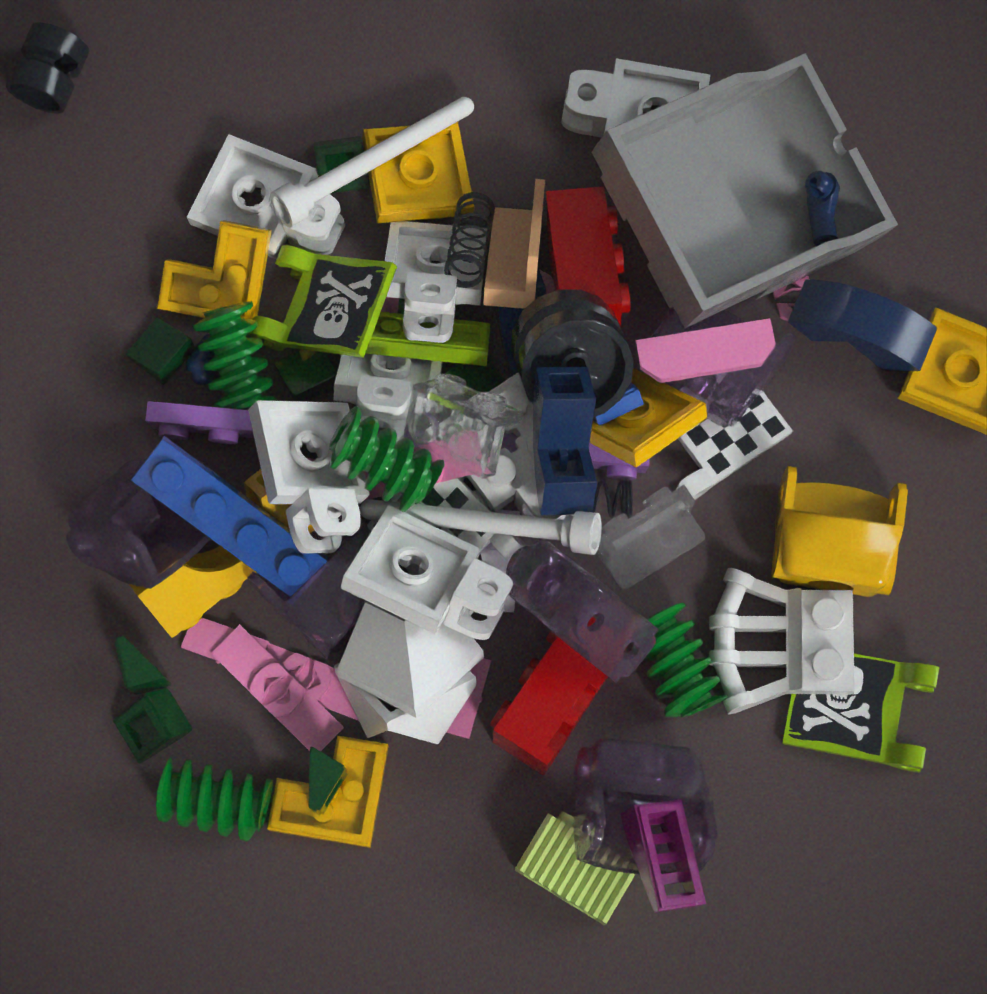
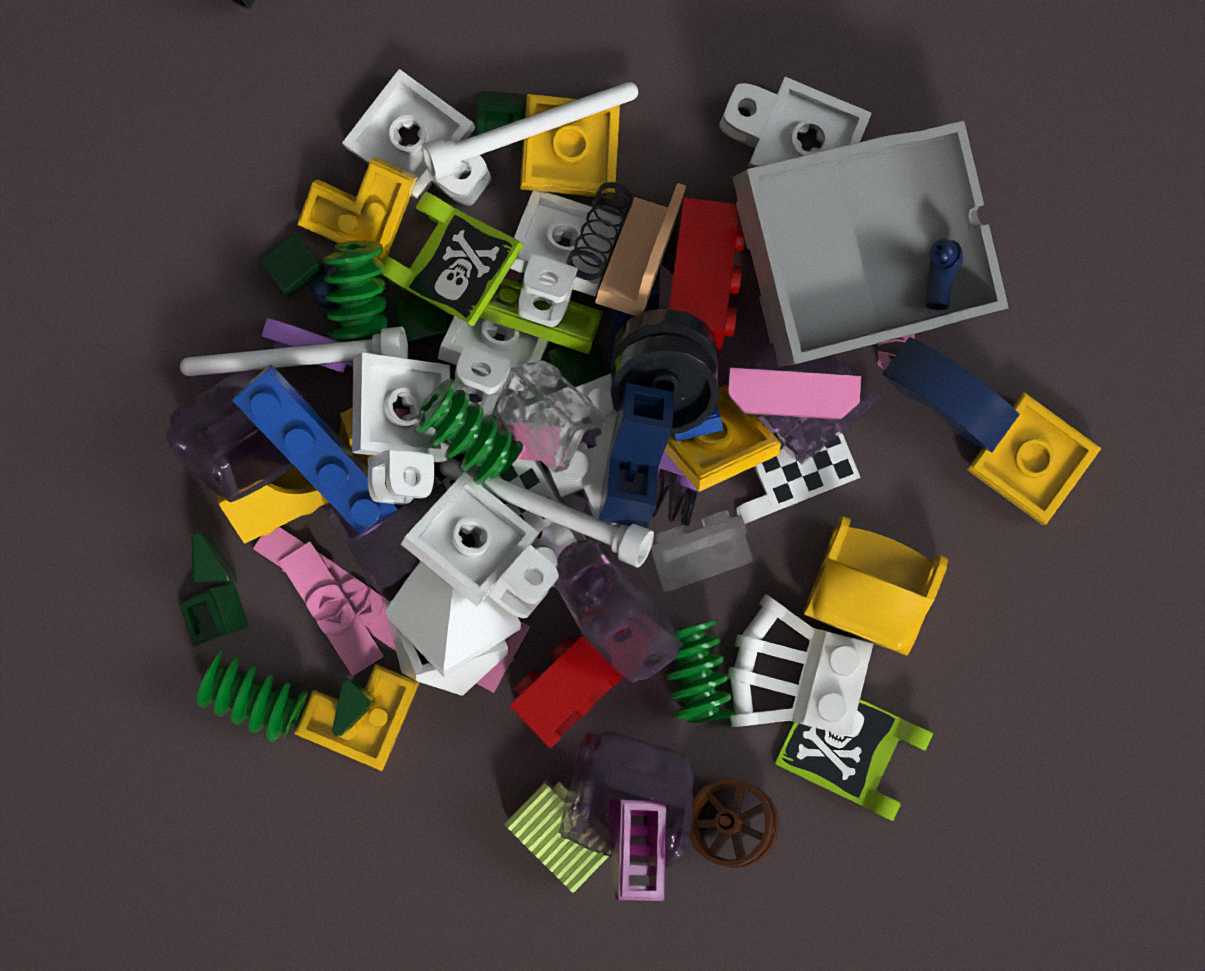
camera: 20 degrees right, 10 degrees up
(280, 390) = (389, 343): none -> white piece
(758, 810) = (733, 823): none -> reddish brown wheel

